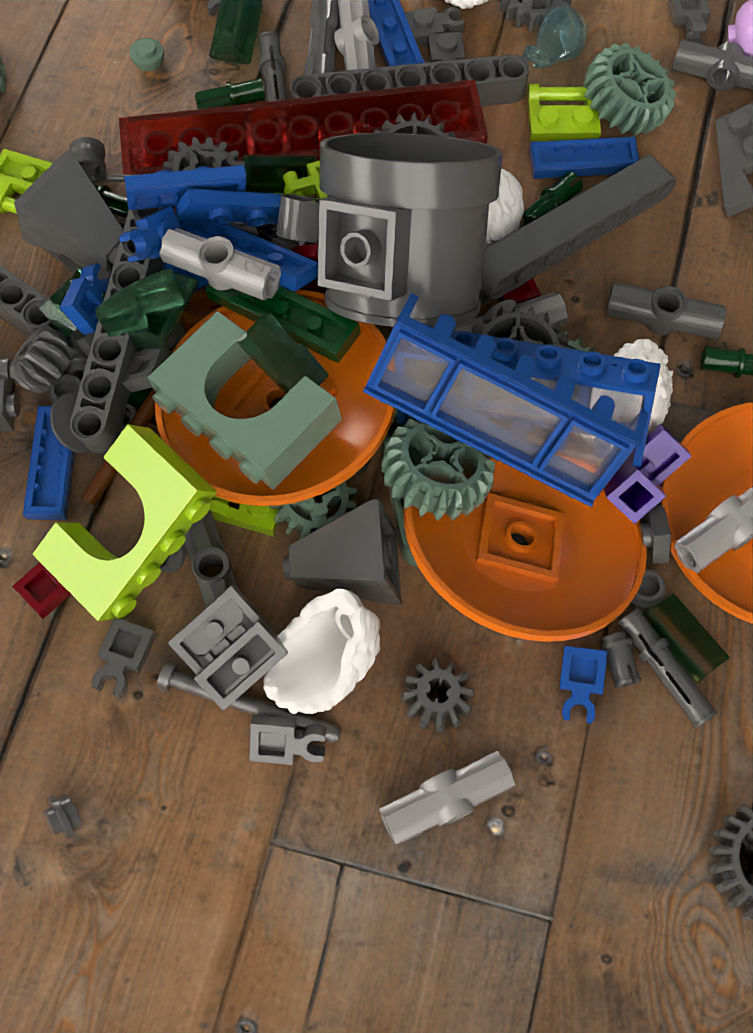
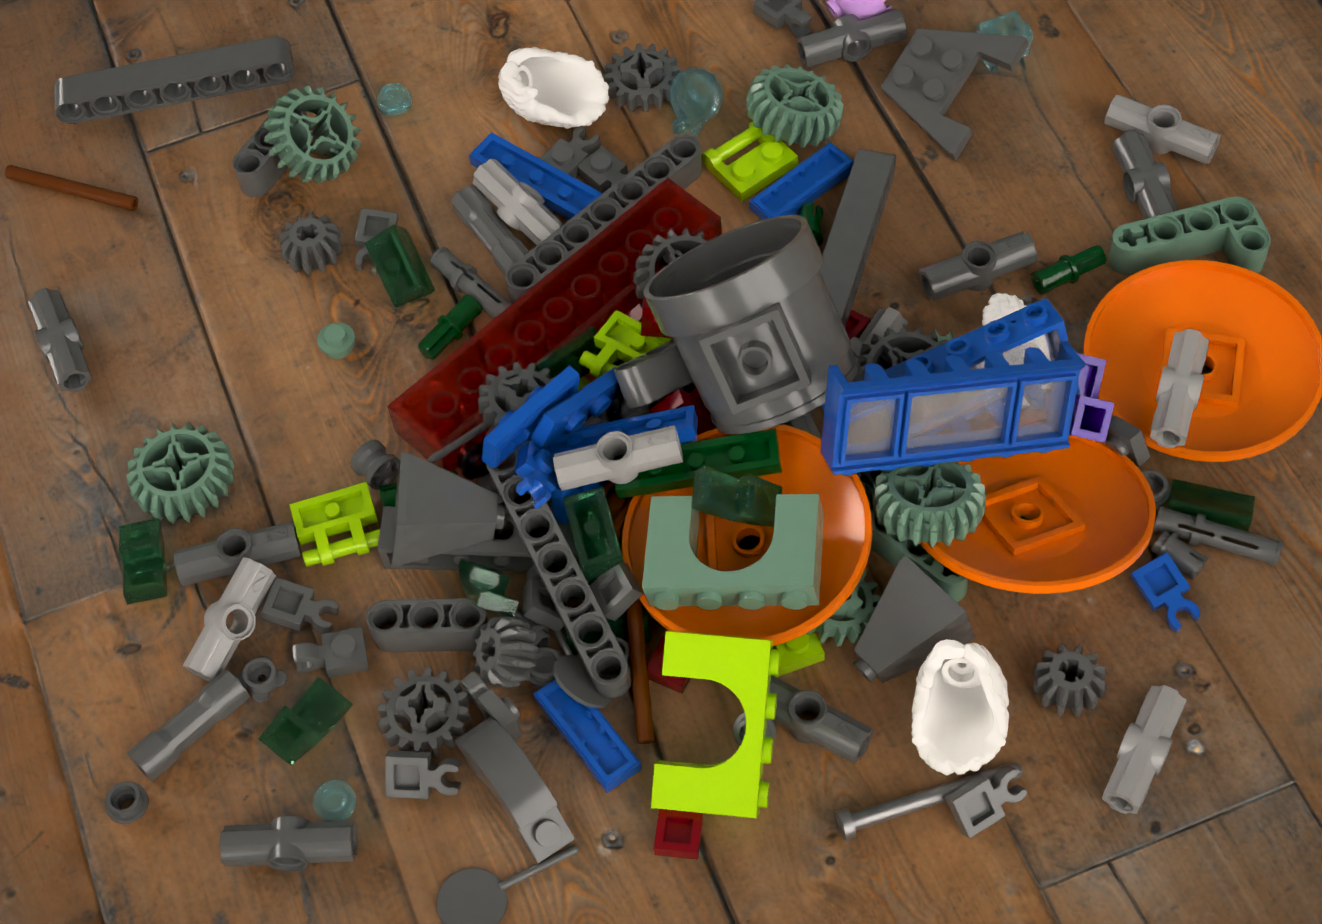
camera: 30 degrees left, 10 degrees down
(83, 299) = (510, 576): blue plate -> none
(123, 650) = (793, 830): dark grey plate -> none
(128, 307) = (575, 543): clear green slope -> none
(228, 647) = (882, 757): slope -> none

